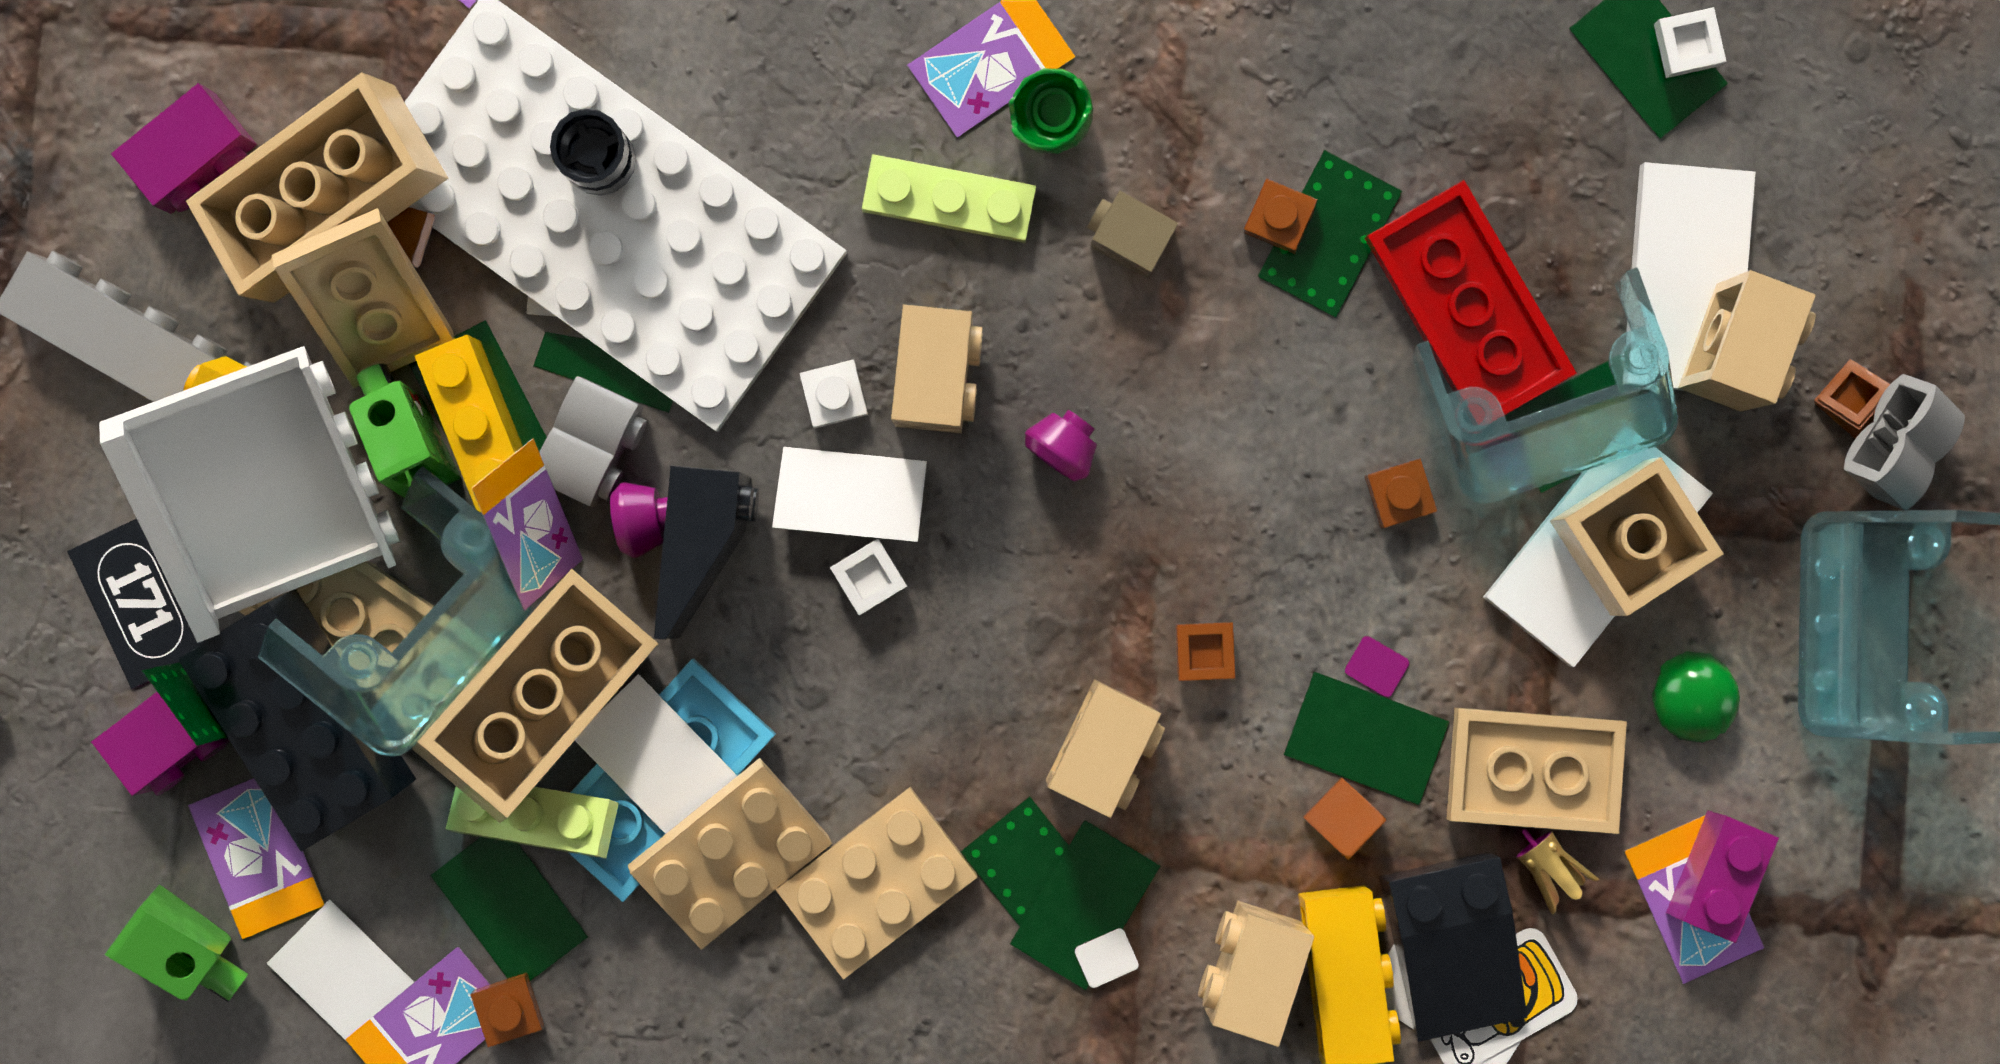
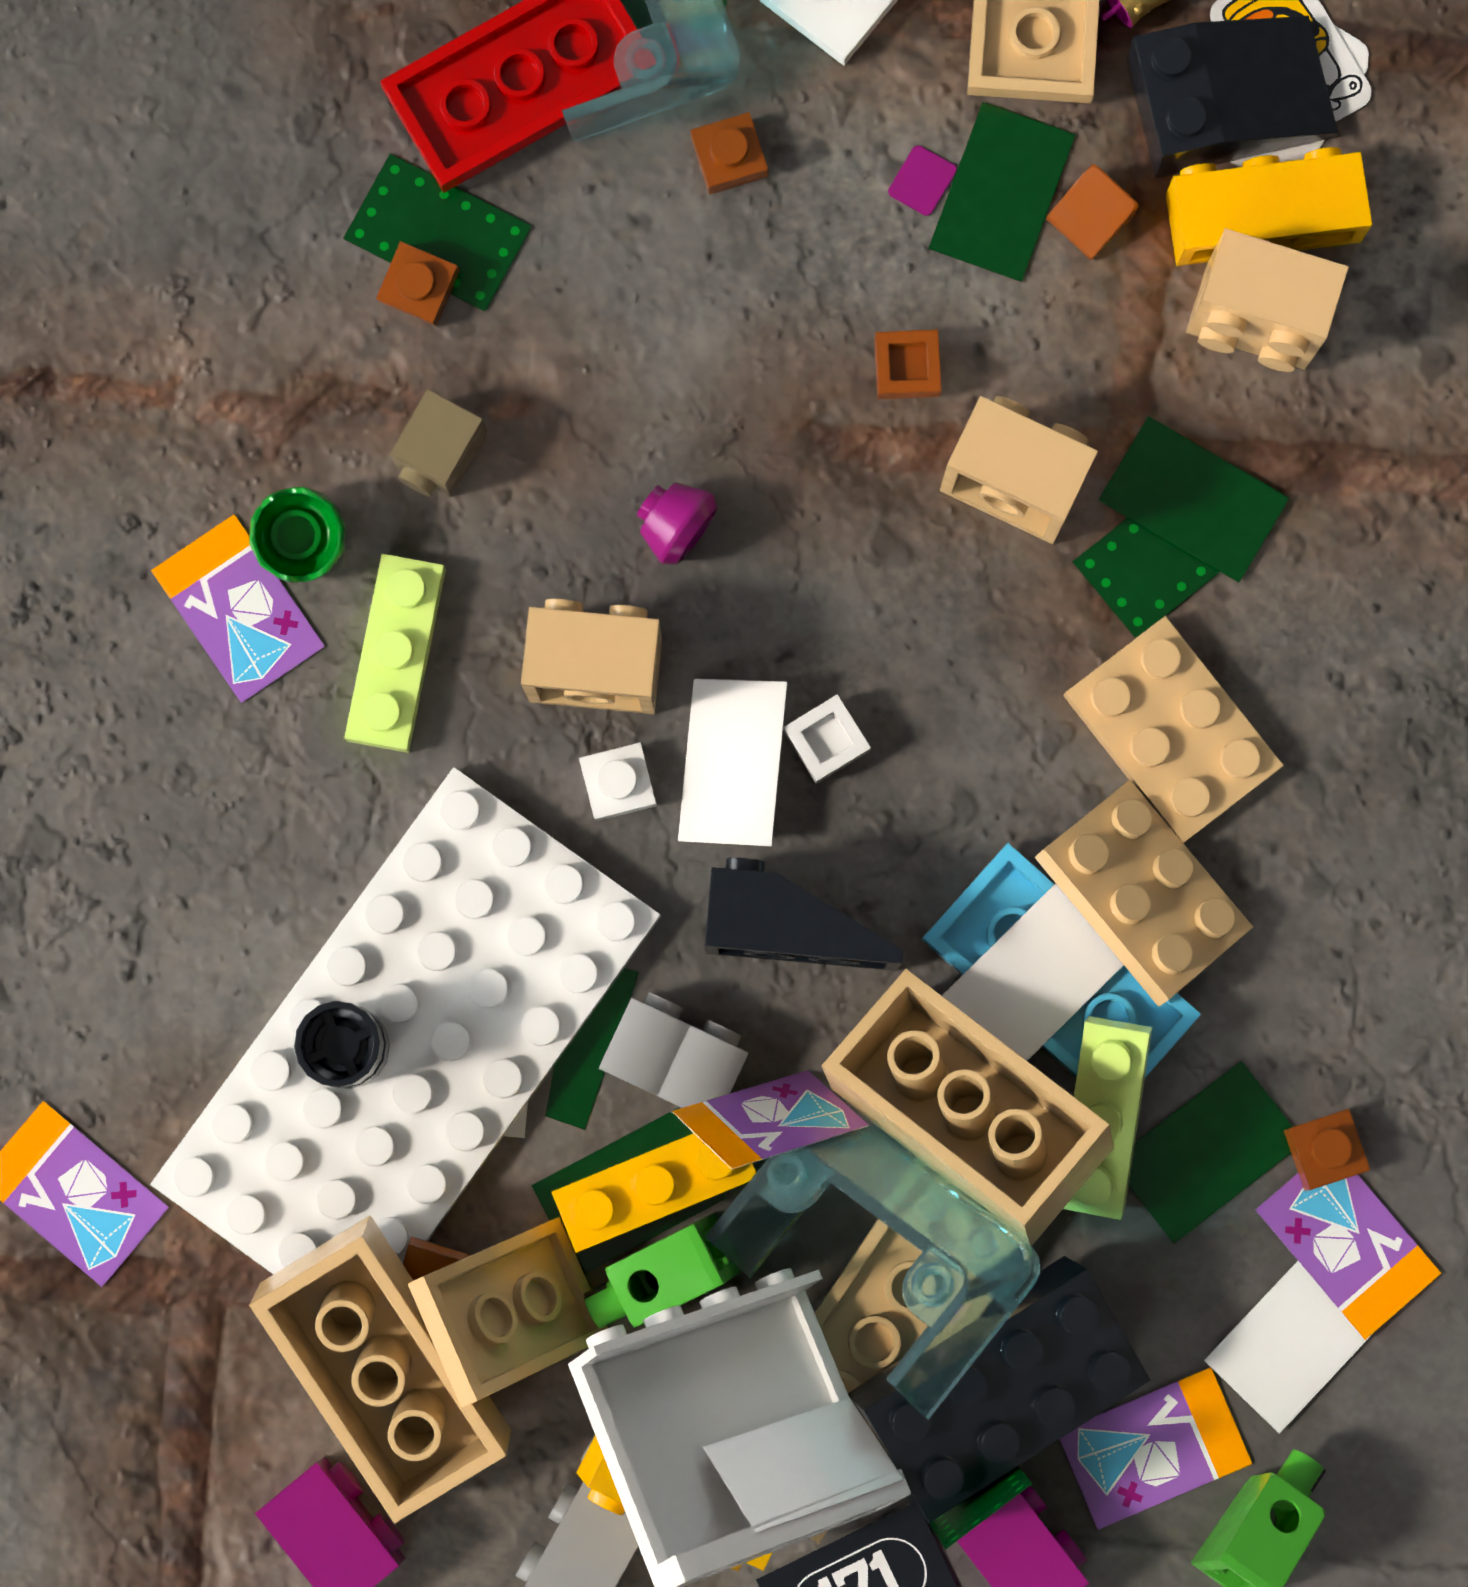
camera: 85 degrees left, 5 degrees down
(221, 548) = (801, 1463): none -> white sticker
(637, 518) = (761, 997): magenta cone -> none
(1106, 958) = (1252, 474): white sticker -> none

